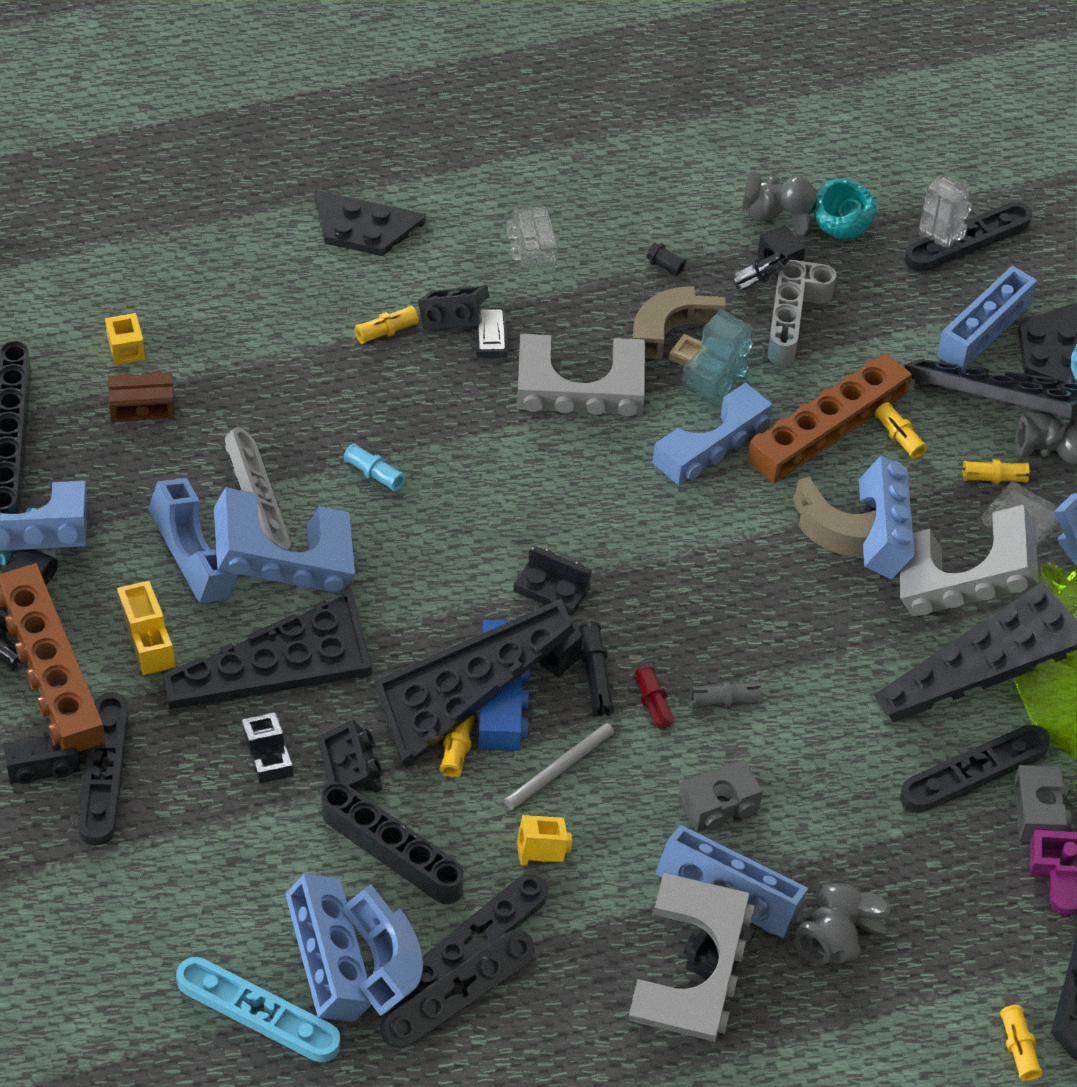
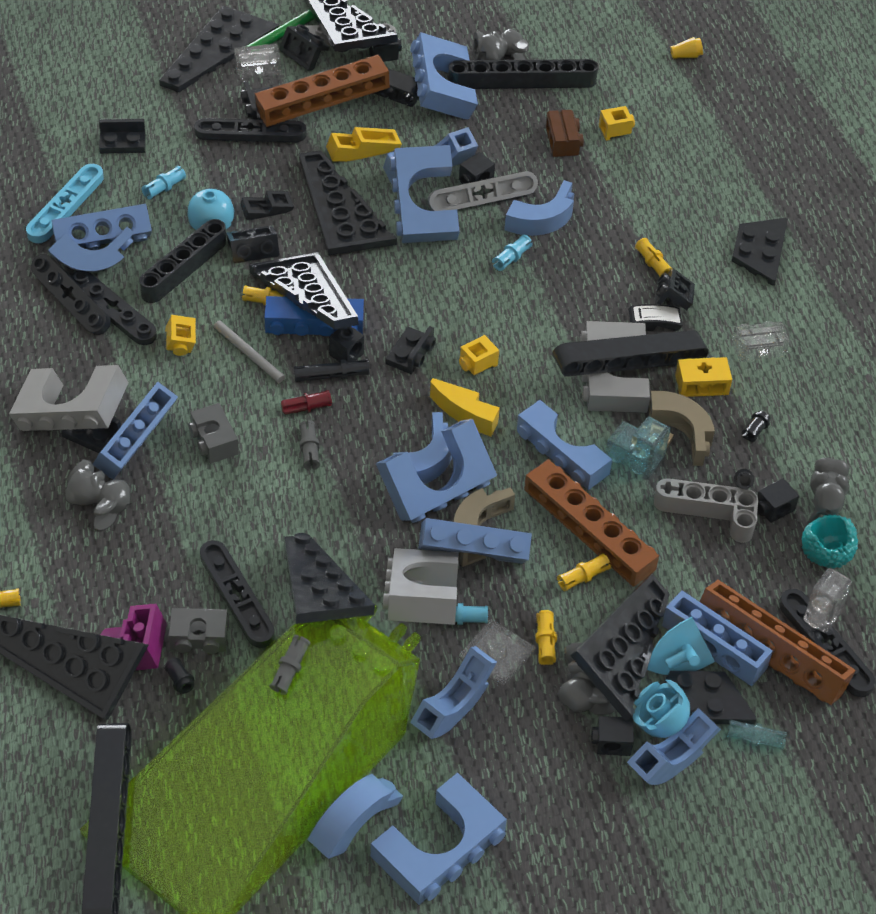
camera: 90 degrees right, 0 degrees up
(108, 941) = (122, 136): none -> black bracket
(210, 487) = (476, 169): none -> black brick
(216, 878) = (163, 182): none -> medium azure pin
(283, 815) = (210, 205): none -> medium azure cylinder
(308, 418) = (543, 218): none -> medium blue arch
(569, 507) = (478, 355): none -> yellow brick
(578, 349) = (628, 352): none -> black beam
(594, 295) = (703, 377): none -> yellow brick
(658, 526) = (464, 405): none -> yellow slope
(743, 560) = (436, 456): none -> medium blue arch
(806, 571) = (470, 470): none -> medium blue arch
(975, 544) = (471, 614): none -> medium azure pin
(1013, 244) = (787, 642): none -> dark orange brick
(1019, 339) = (680, 650): none -> medium azure shield

